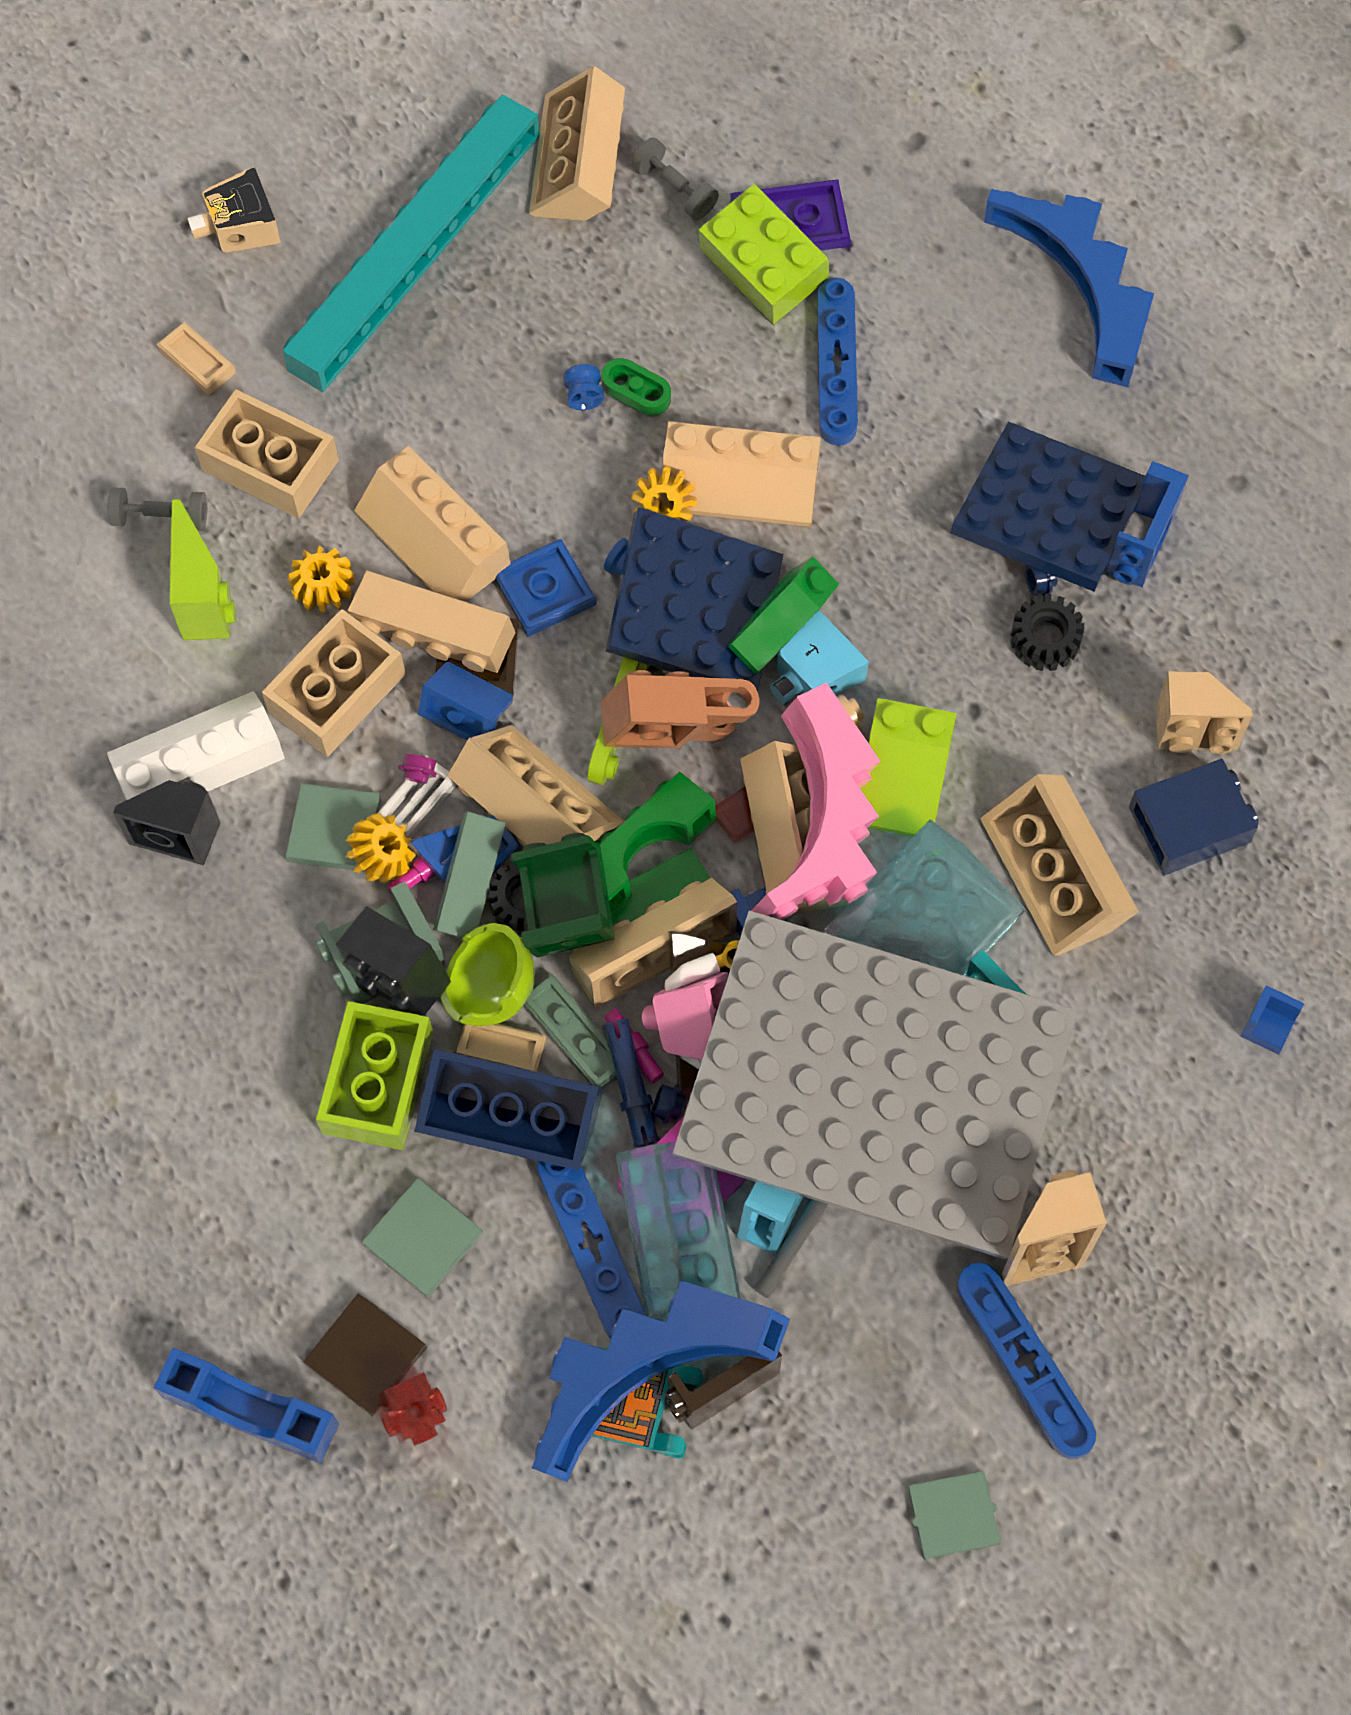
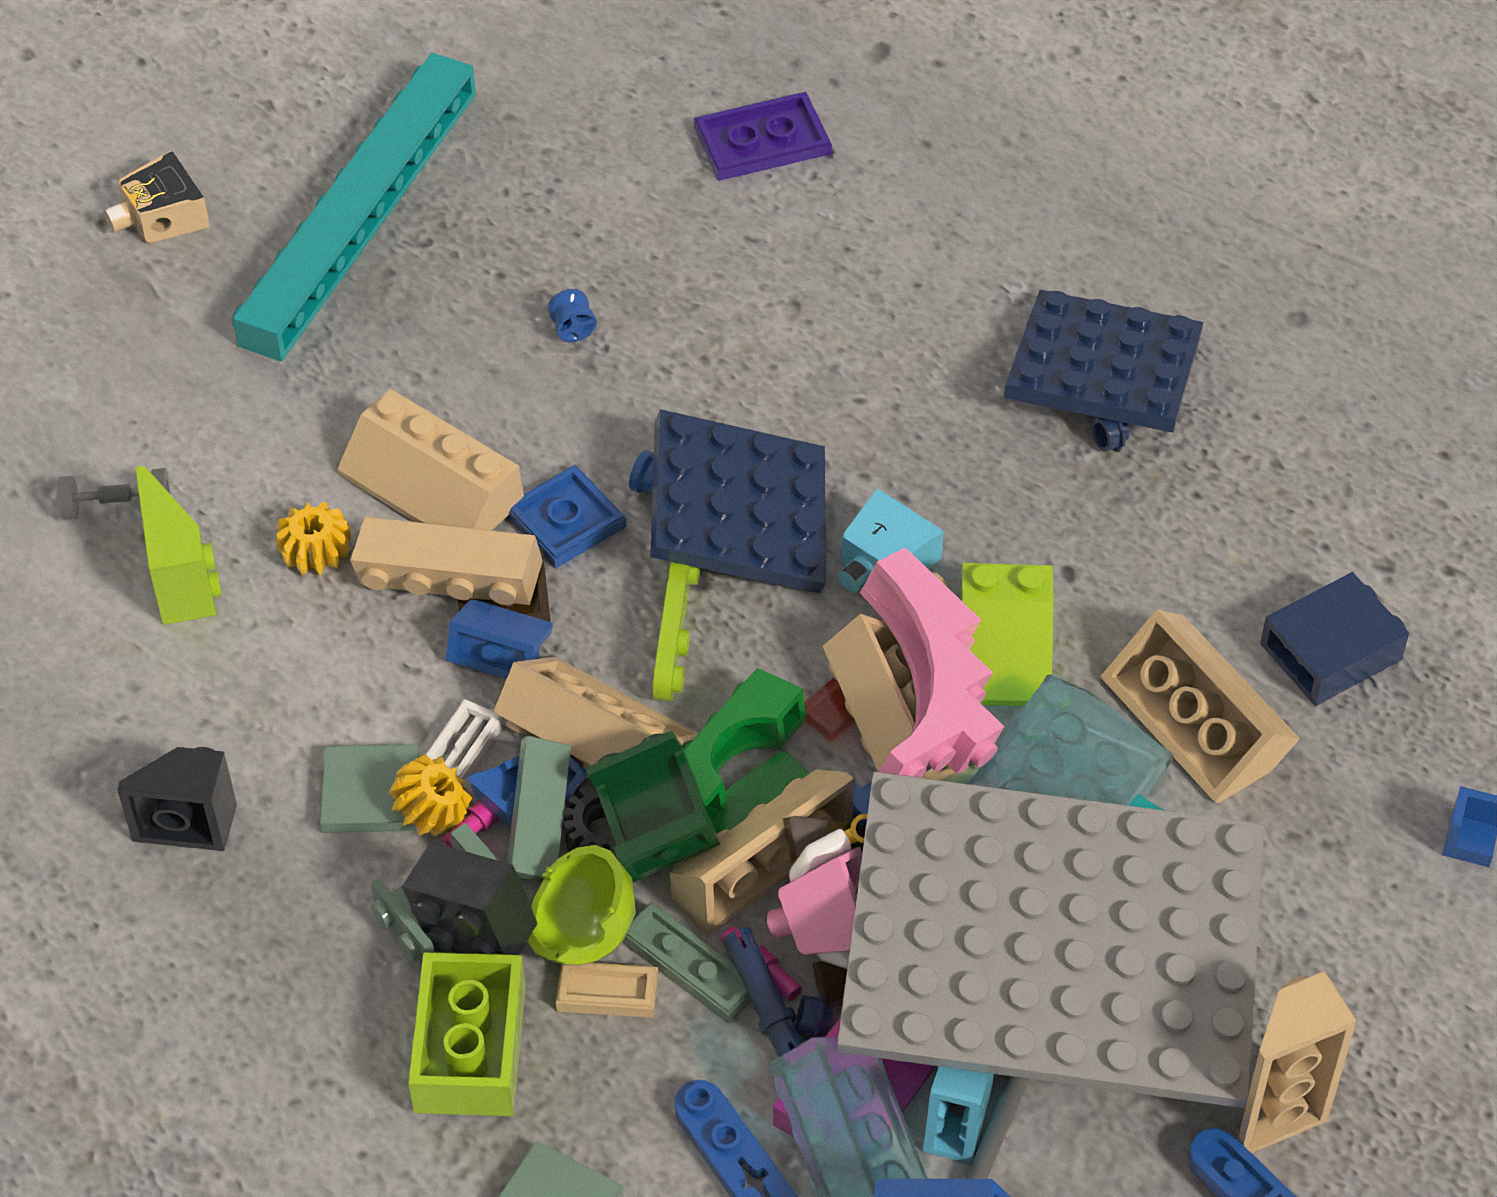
camera: 10 degrees left, 15 degrees down
(196, 358) = (134, 346): tan tile -> none
(201, 749) = (229, 716): white slope -> none
(267, 453) = (231, 421): tan brick -> none
(334, 682) = (346, 636): tan brick -> none
(418, 768) = (458, 708): magenta plate -> none
(508, 1109) = (631, 1042): dark blue slope -> none
(578, 147) = (521, 95): tan slope -> none
(638, 387) = (629, 308): green plate -> none
(650, 156) = (600, 94): dark grey wheel -> none
(673, 709) = (739, 602): nougat brick -> none
(676, 493) = (693, 393): yellow gear -> none
(745, 472) = (762, 373): tan slope -> none
(764, 254) = (743, 164): lime brick -> none
(783, 613) = (839, 497): green slope -> none
(837, 391) = (850, 287): blue piece -> none
(1052, 613) = (1134, 464): black tyre -> none
(1094, 266) = (1096, 135): blue arch -> none
(1159, 501) = (1219, 343): blue window -> none
(1199, 714) = (1317, 532): tan slope -> none

